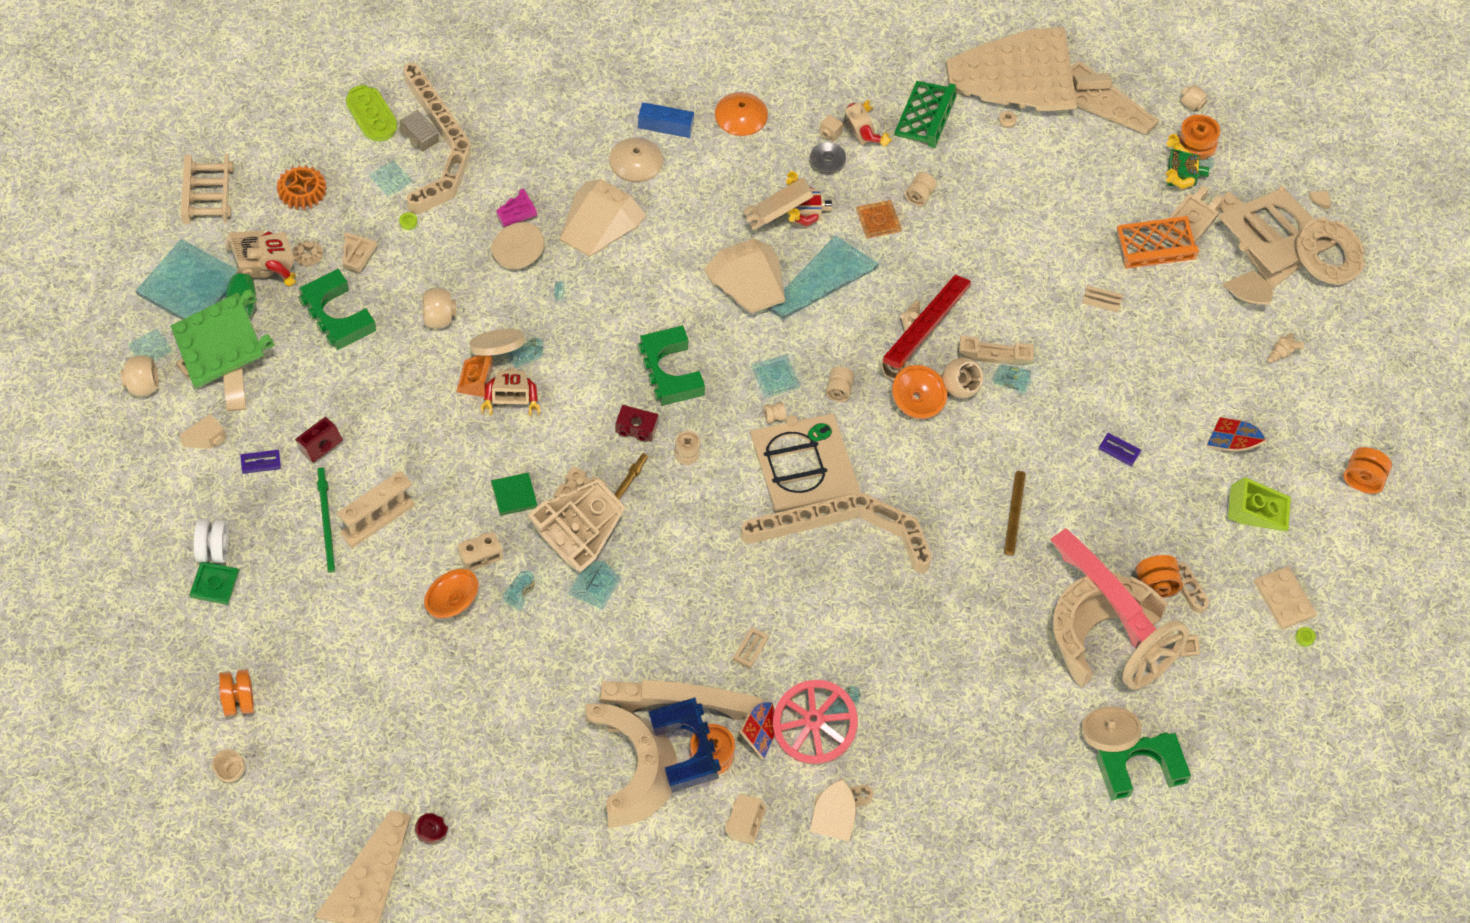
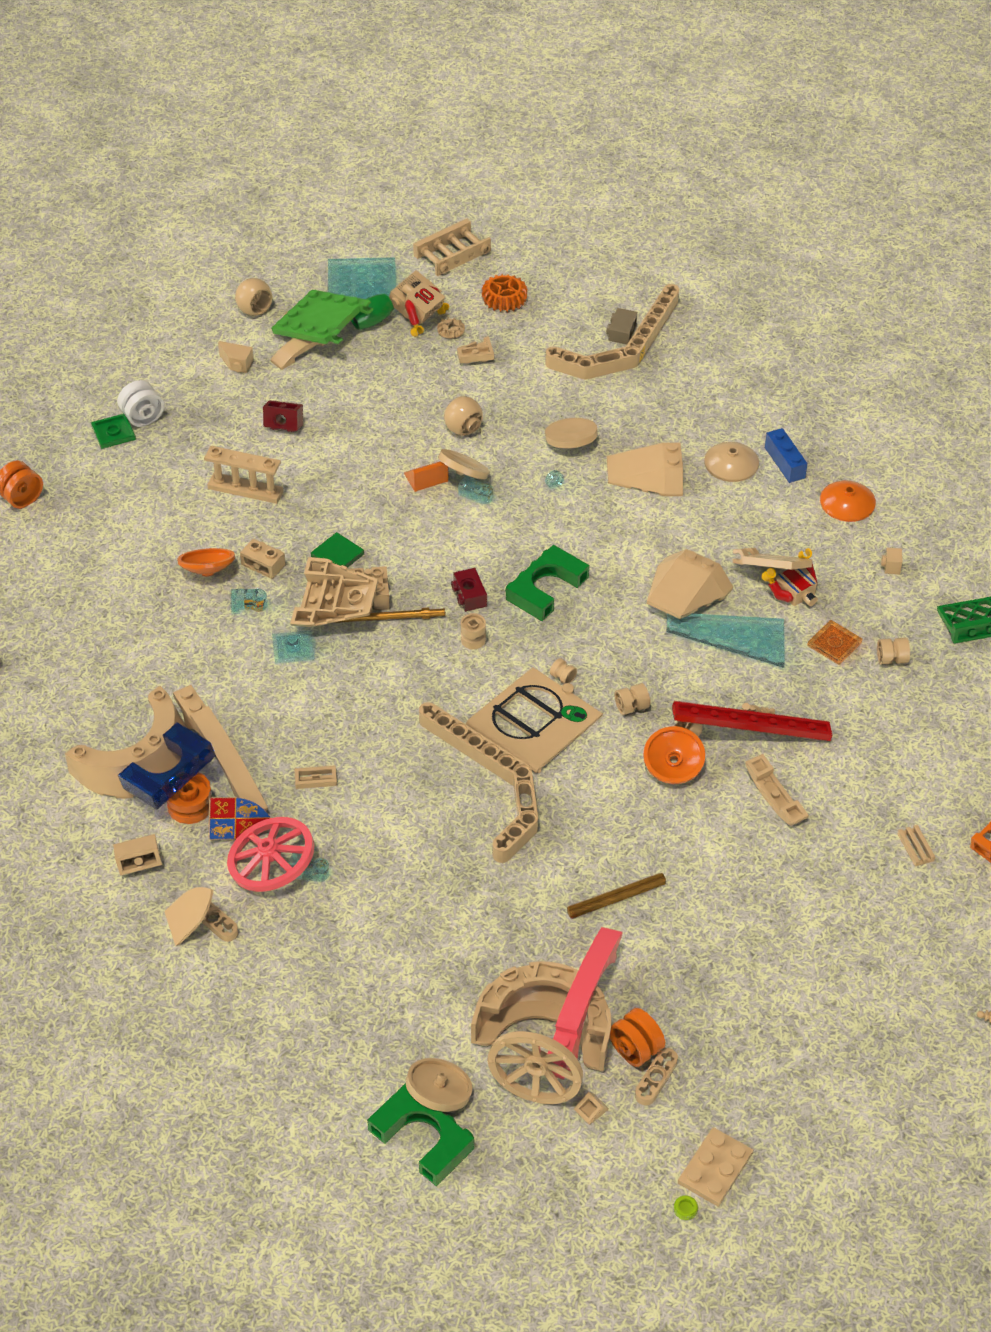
camera: 60 degrees right, 10 degrees down
(151, 345) = (288, 294): clear light blue piece -> none
(260, 465) = (238, 401): dark purple tile -> none
(322, 488) = (247, 443): green bar -> none
(338, 331) = (411, 350): green arch -> none
(371, 113) = (613, 294): lime tile -> none
(390, 178) = (565, 336): clear light blue piece -> none
(408, 221) = (535, 365): lime tile -> none
(510, 388) = (429, 496): torso -> none
(516, 209) = (606, 416): dark pink wing -> none
(775, 376) = (603, 655): clear light blue plate -> none
(828, 151) = (860, 574): flat silver dish -> none
(862, 125) = (917, 574): torso -> none
(969, 375) = (703, 787): tan wheel -> none
(1013, 378) = (759, 820): clear light blue leg -> none
(1118, 452) = (762, 957): dark purple tile -> none
(1235, 435) = (861, 1026): shield -> none
(1258, 505) = (800, 1089): lime slope -> none
(1367, 470) = (923, 1159): orange wheel -> none

